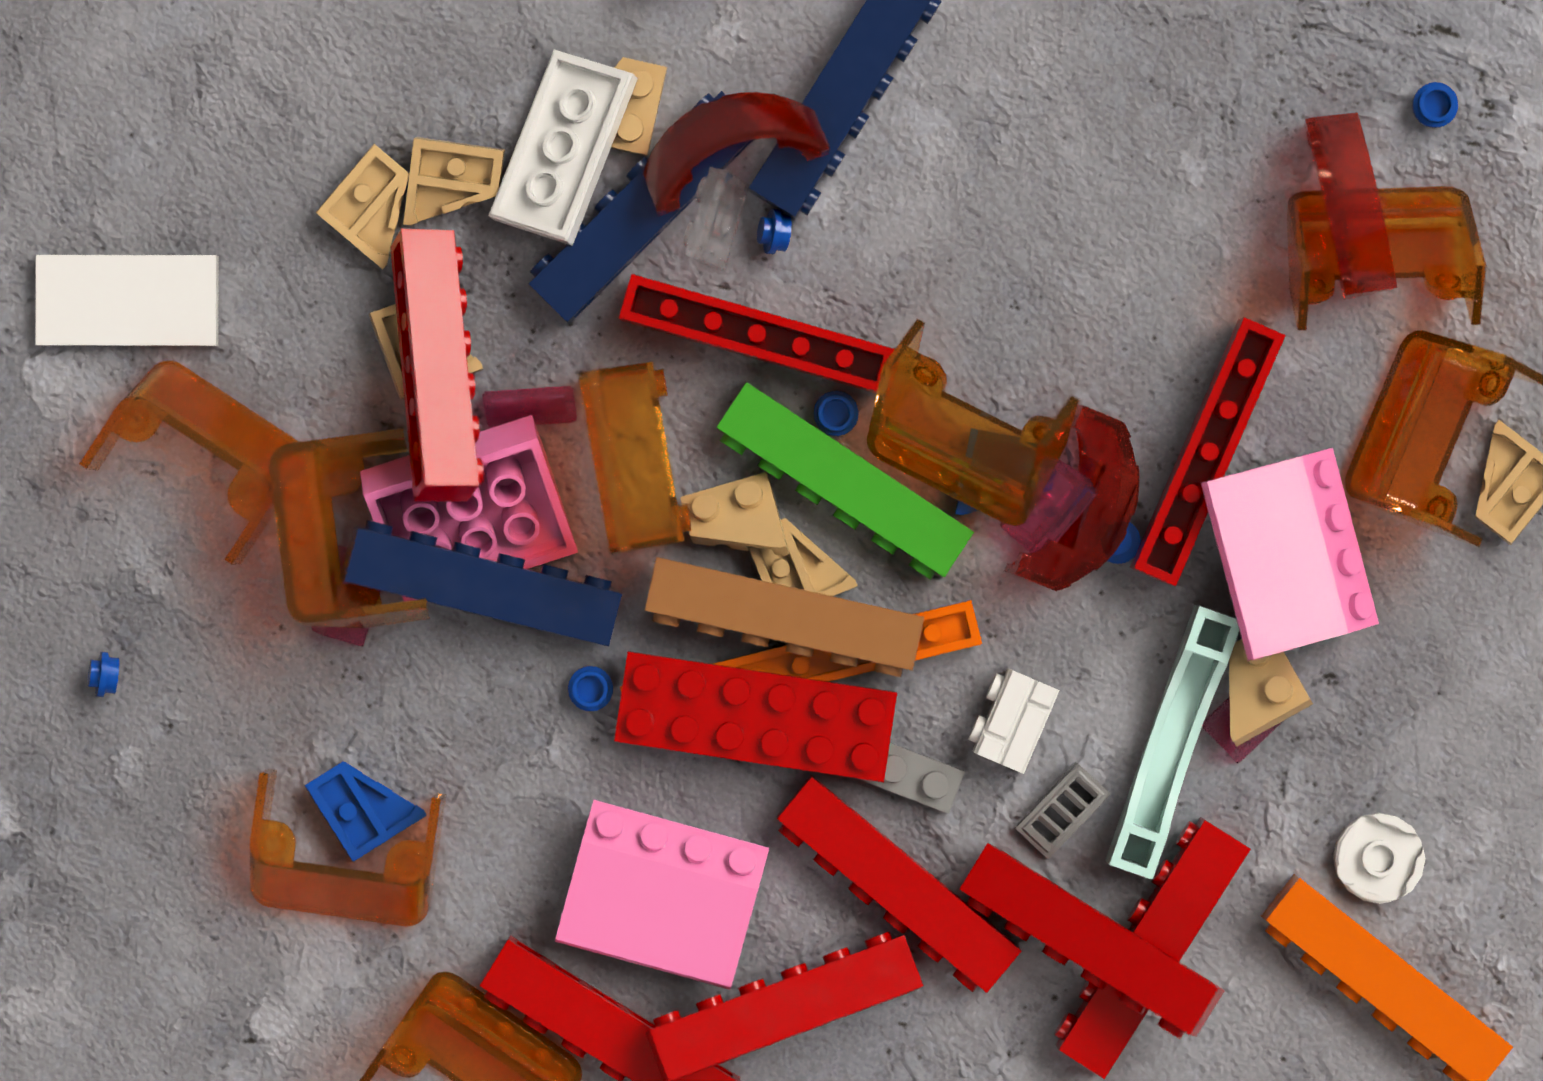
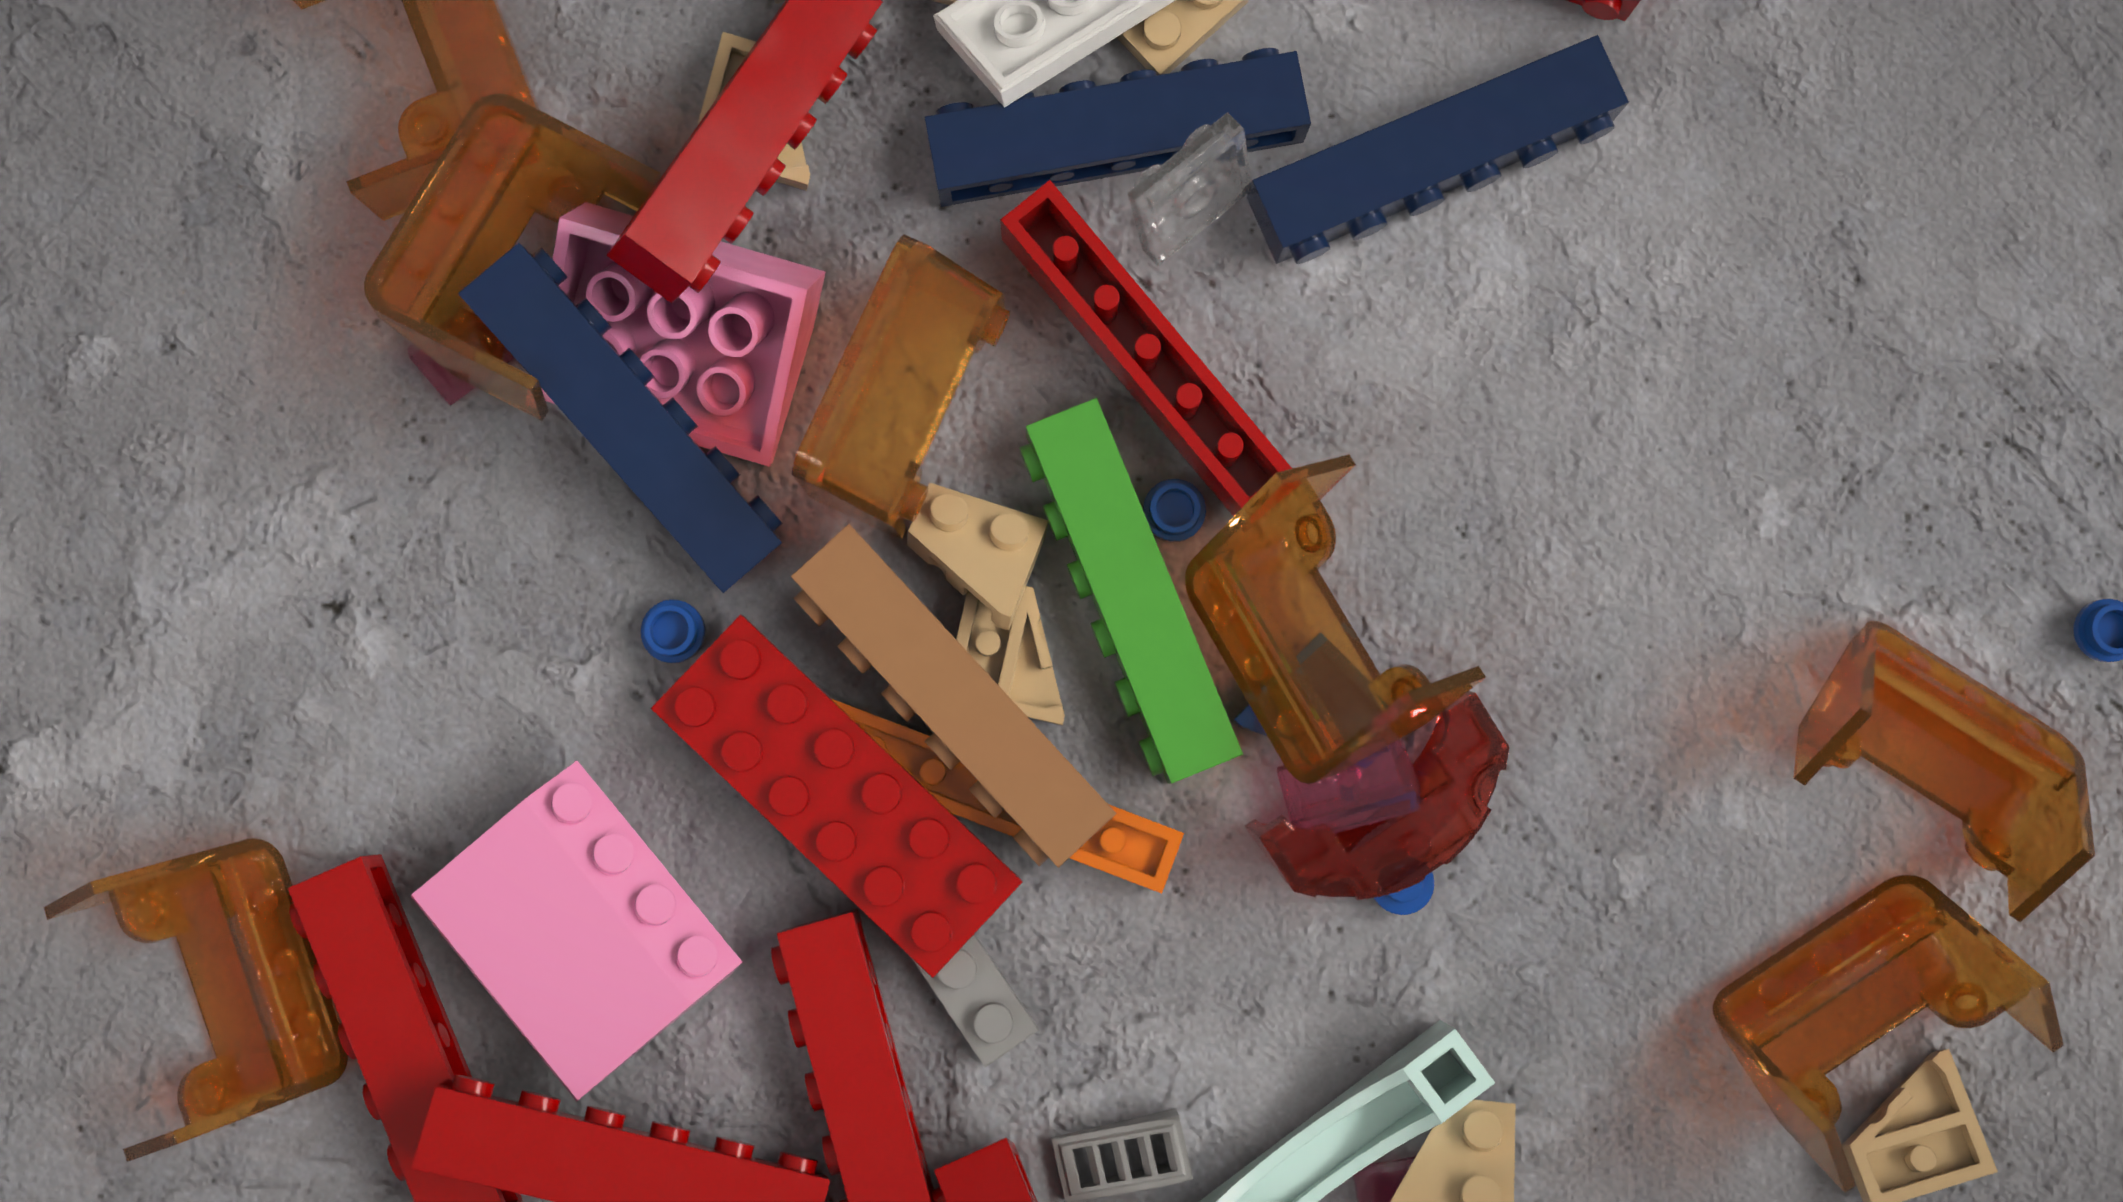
camera: 25 degrees right, 5 degrees down
(104, 674) = (133, 232): blue plate -> none
(360, 809) = (309, 586): blue wing -> none
(394, 898) = (276, 710): clear orange windscreen -> none
(545, 404) = (848, 267): clear pink slope -> none
(722, 124) = (1272, 85): clear red windscreen -> none
(774, 231) = (1245, 256): blue plate -> none
(1014, 719) = (1137, 1010): white brick -> none
(1207, 450) = (1583, 849): red brick -> none
(1290, 553) = (1606, 1042): bright pink slope -> none
(1351, 204) = (1945, 679): clear red windscreen -> none

